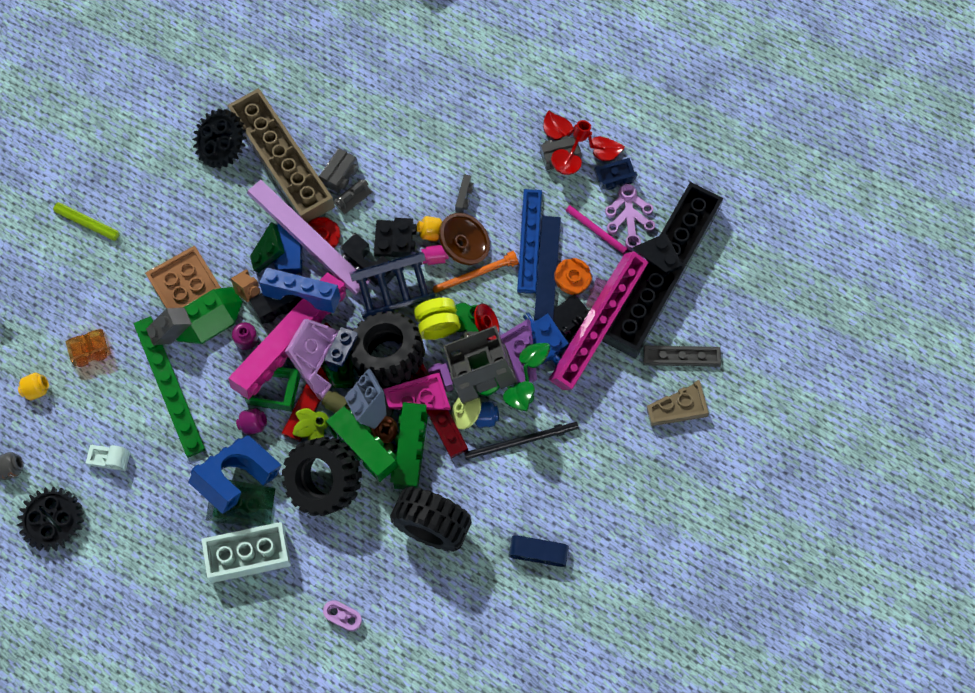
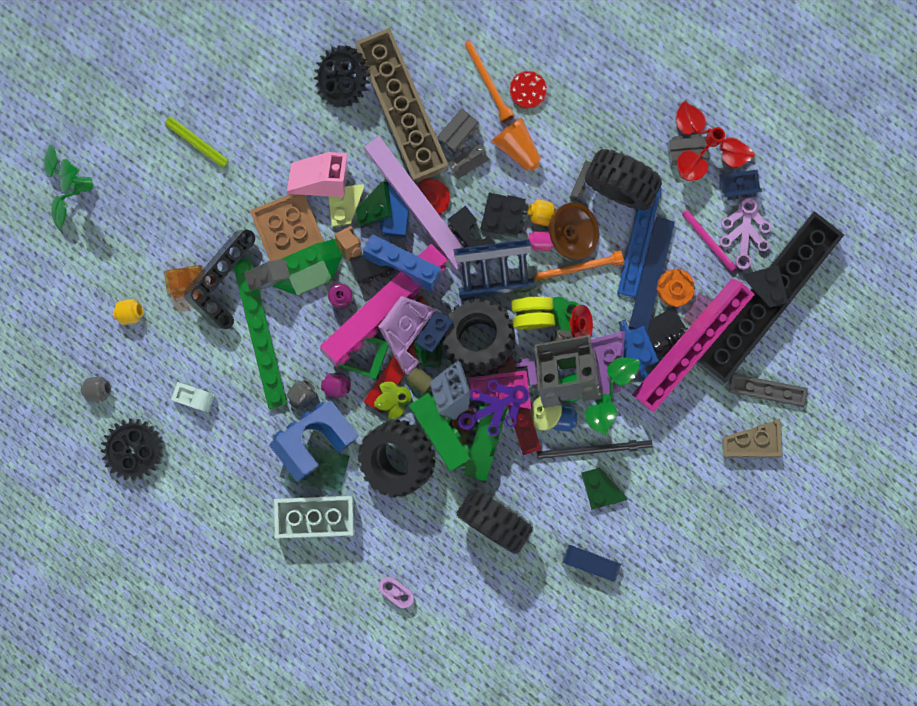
camera: 10 degrees right, 15 degrees up
(117, 334) = (216, 277): none -> black beam
(210, 228) = (319, 175): none -> bright pink slope
(217, 435) = (301, 394): none -> dark grey head
(237, 253) = (343, 208): none -> yellowish green wing
(381, 148) = (505, 112): none -> orange piece
(397, 172) = (518, 145): none -> orange cone
(399, 125) = (528, 89): none -> red tile
(414, 406) = (497, 406): none -> dark purple plant
(502, 181) = (623, 179): none -> black tyre
(535, 477) = (601, 489): none -> dark green wing

